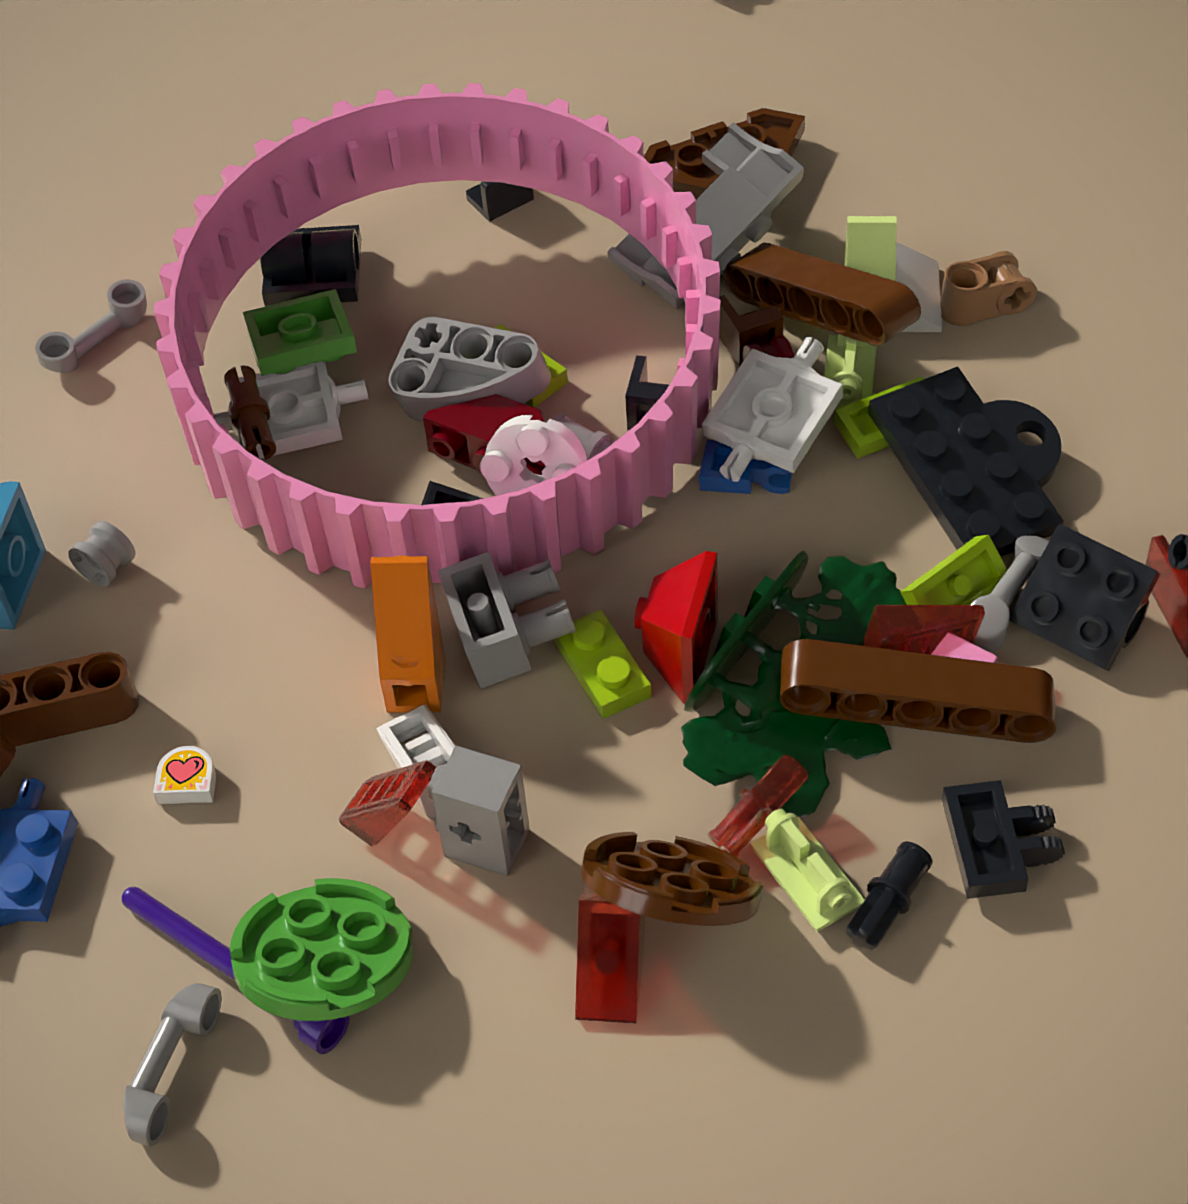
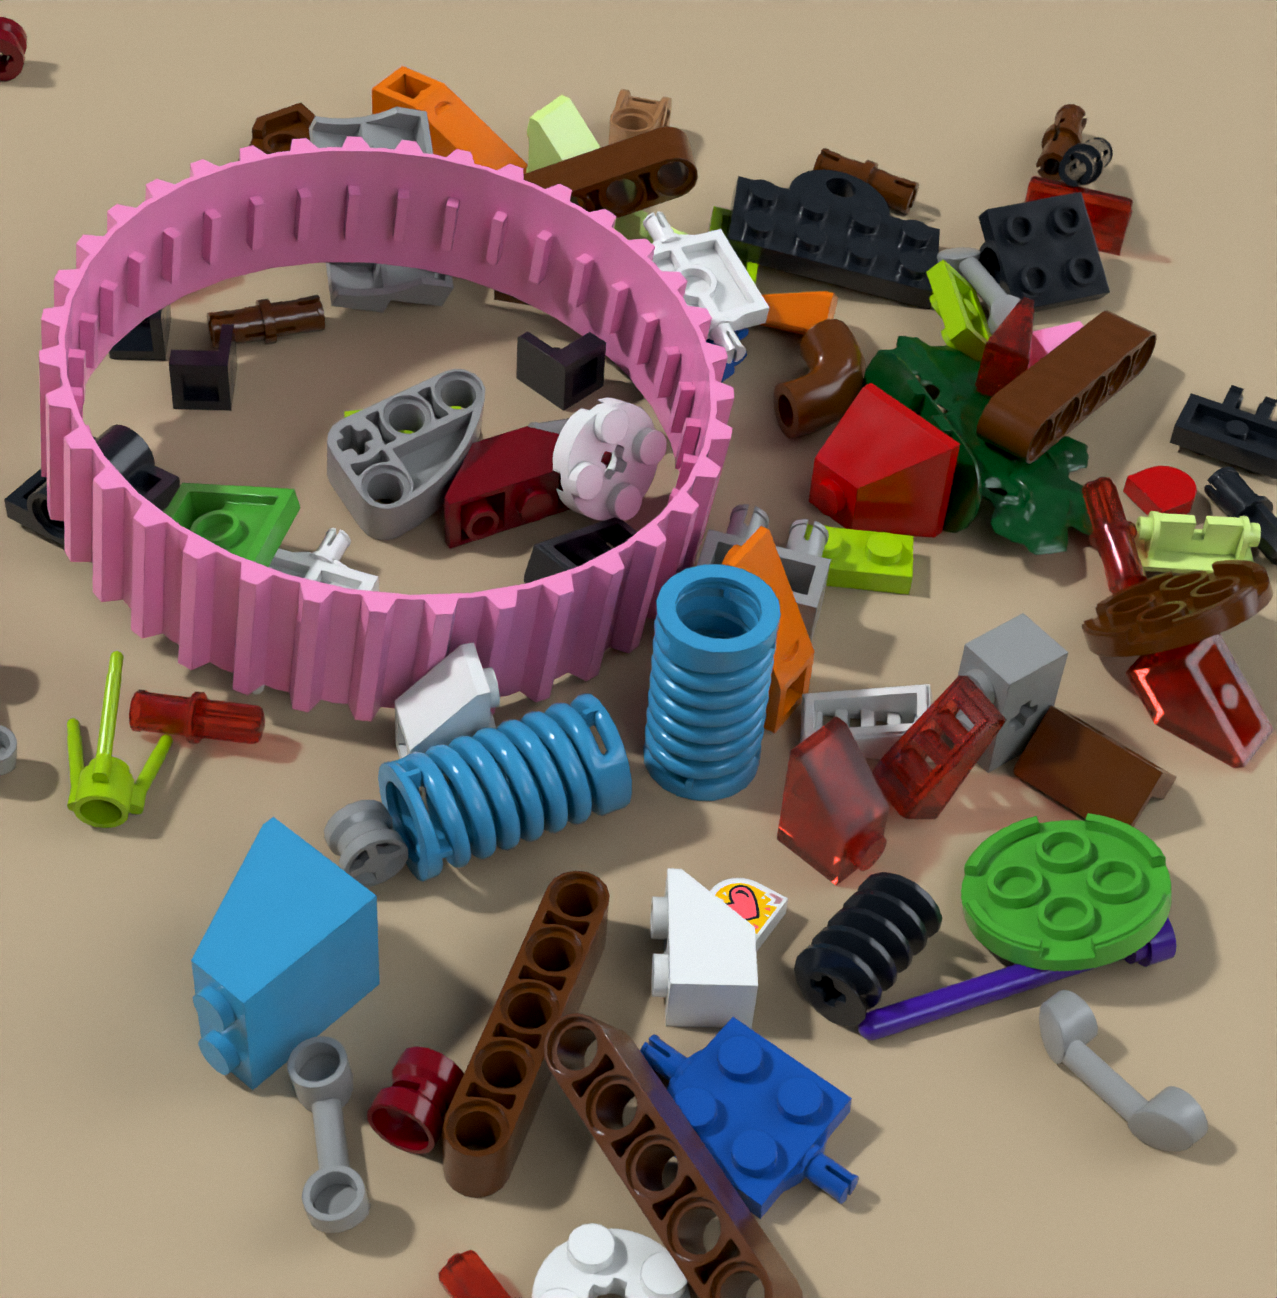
camera: 65 degrees left, 5 degrees down
(67, 413) = (105, 788): none -> lime plant
(118, 768) = (706, 959): none -> white slope
(156, 419) = (196, 717): none -> clear red axle
(181, 586) = (505, 785): none -> dark azure piece
(181, 855) = (866, 947): none -> black piece
(220, 534) = (446, 703): none -> white slope
(291, 764) = (832, 805): none -> clear red slope
(317, 626) = (710, 681): none -> dark azure piece
(476, 249) = (205, 377): none -> black panel
(484, 915) = (1090, 769): none -> reddish brown panel
(560, 238) = (269, 320): none -> reddish brown pin
(769, 550) = (829, 386): none -> reddish brown cylinder
(842, 487) = (799, 310): none -> orange slope
(844, 185) = (449, 118): none -> orange slope
(866, 823) = (1161, 490): none -> red tile
(1078, 447) = (896, 191): none -> reddish brown pin

